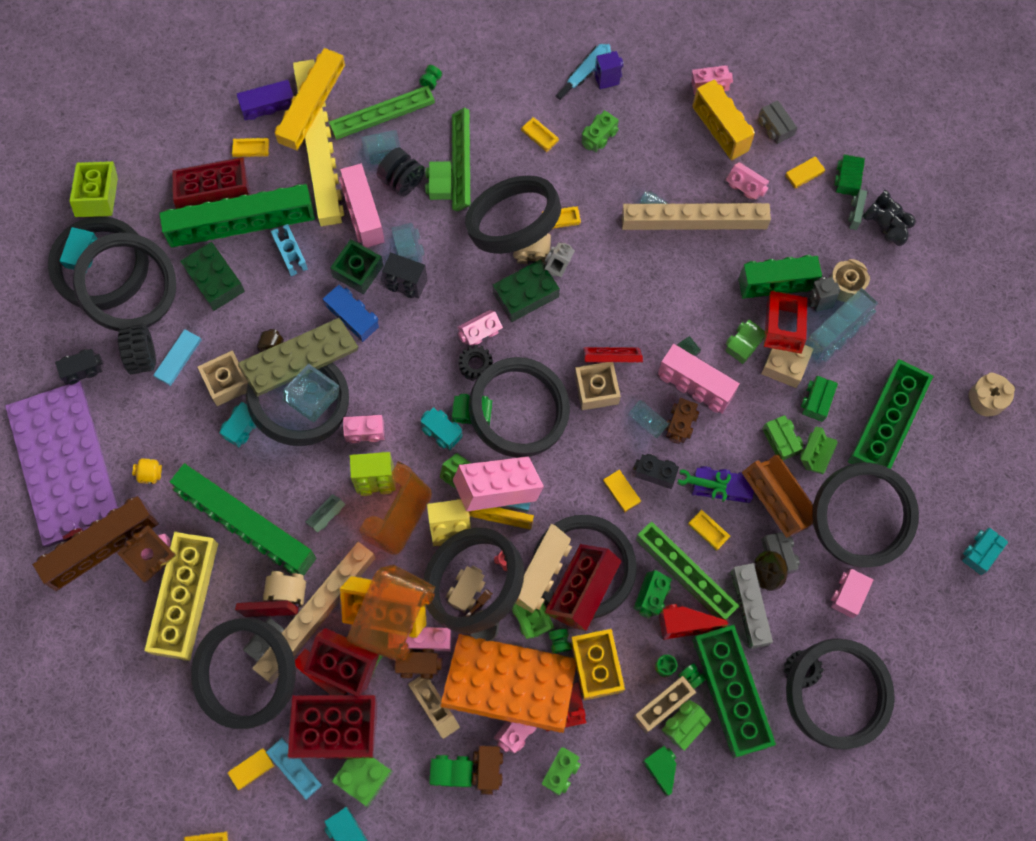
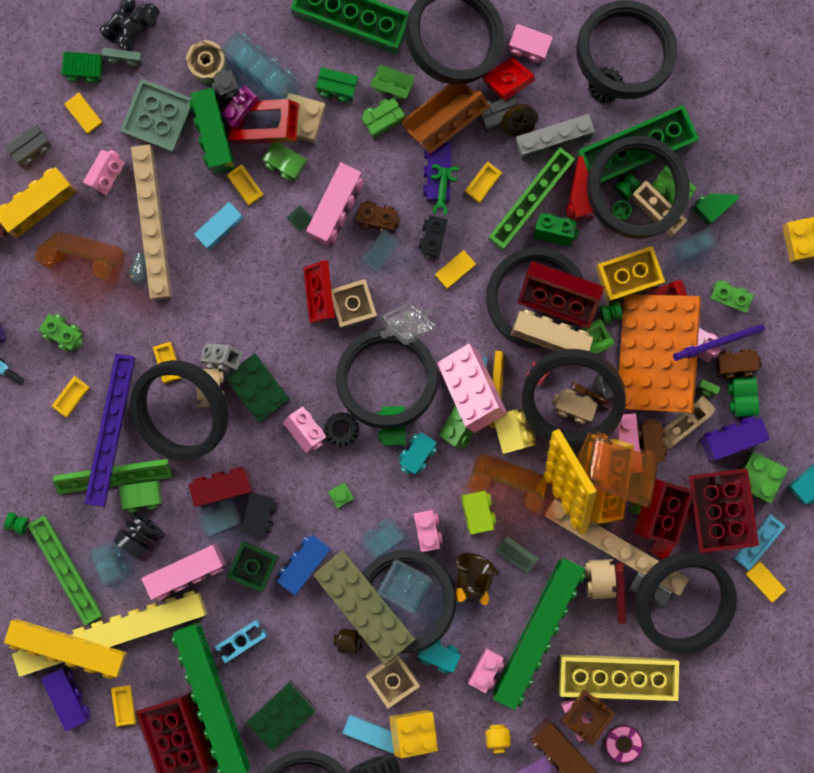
camera: 95 degrees left, 15 degrees up
(115, 595) = (623, 743): none -> tile
(168, 390) = (413, 733): none -> yellow brick
(217, 467) = (485, 670): none -> bright pink brick
(310, 466) = (473, 577): none -> dark brown hair
(363, 387) = (383, 537): none -> clear light blue brick
(386, 559) = (569, 482): none -> yellow plate
(407, 751) = (734, 438): none -> dark purple brick
(412, 355) = (341, 495): none -> bright green plate
(436, 246) = (221, 486): none -> dark red brick
(465, 732) = (707, 388): none -> bright green plate
(502, 157) = (110, 430): none -> dark purple plate
(506, 709) = (692, 351): none -> dark purple bar
(572, 433) = (407, 323): none -> clear plate
(621, 739) = (693, 245): none -> clear light blue brick
(664, 170) = (107, 257): none -> clear orange windscreen
(686, 275) = (219, 226): none -> medium azure piece
(725, 304) = (245, 185): none -> yellow tile
(736, 678) = (676, 167): none -> black tyre
(798, 232) = (156, 115): none -> sand green plate
(802, 301) = (240, 106): none -> magenta plate
(815, 565) = (508, 78): none -> red plate

